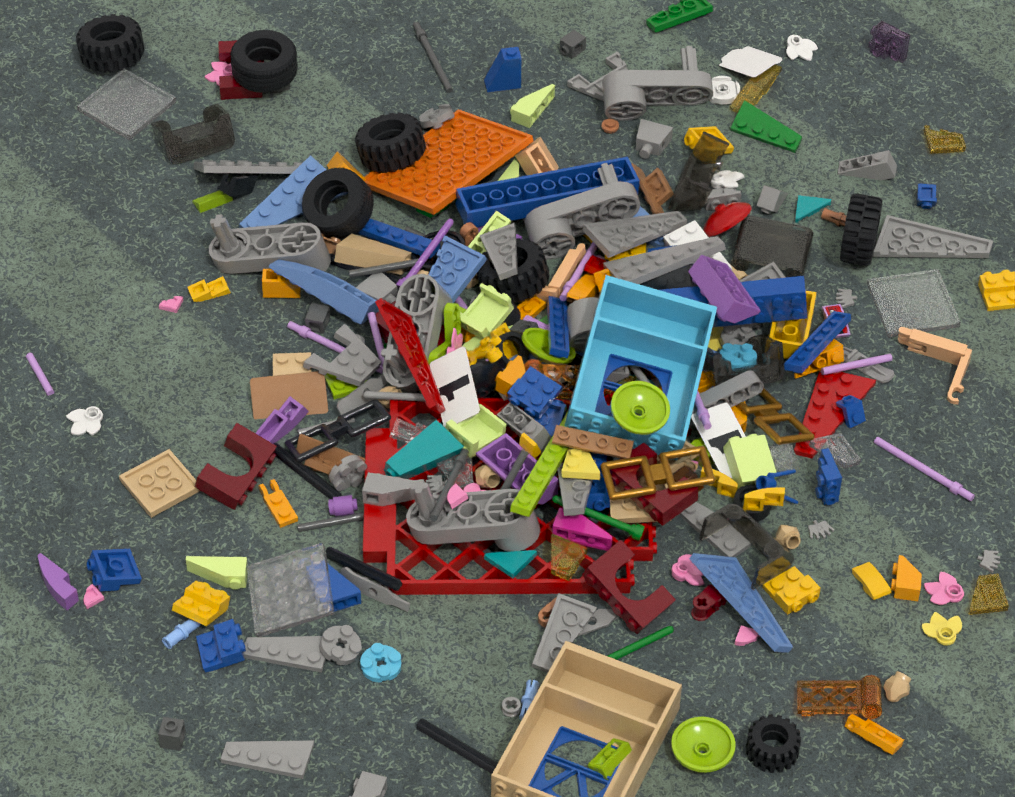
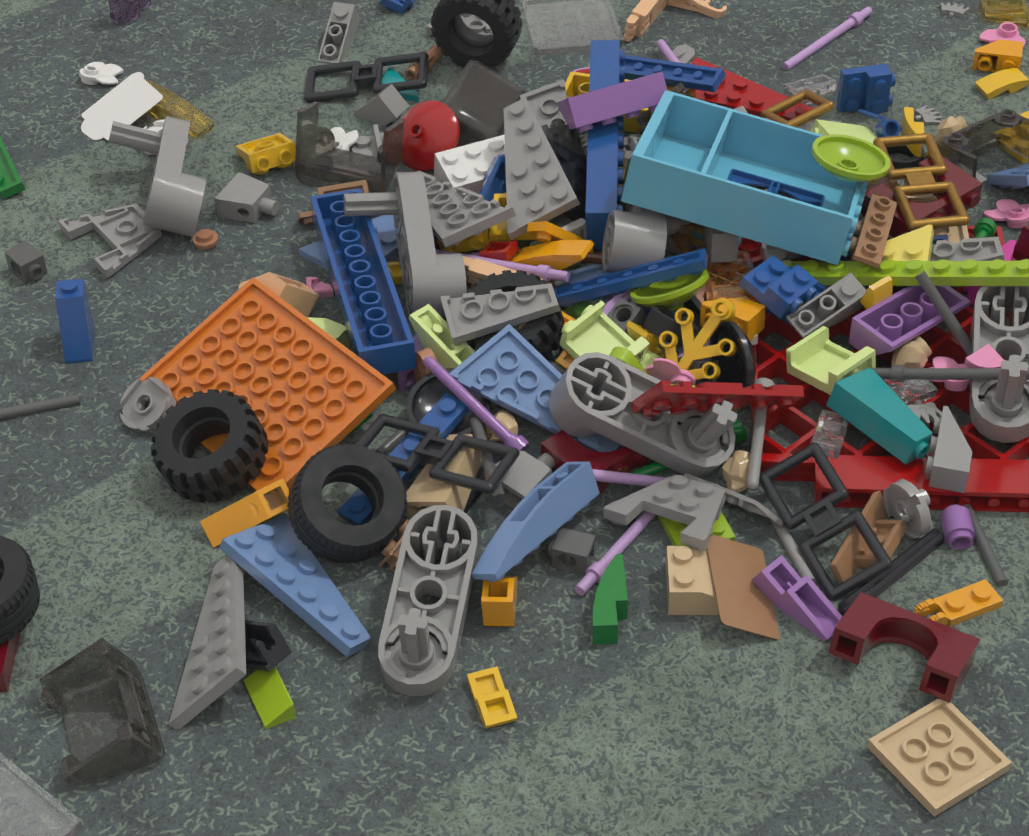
camera: 85 degrees left, 5 degrees down
(172, 304) = (521, 751): bright pink tile -> none
(278, 335) = (610, 603): none -> green slope
(380, 238) = (441, 452): none -> black bar
(455, 386) = (764, 362): white sticker -> none
(531, 106) = (153, 310): yellowish green slope -> none
(762, 127) = (245, 110): green wing -> none
(811, 186) = (365, 76): none -> black bar
(845, 297) = (554, 71): light grey piece -> none
(852, 410) = (746, 69): blue bracket -> none

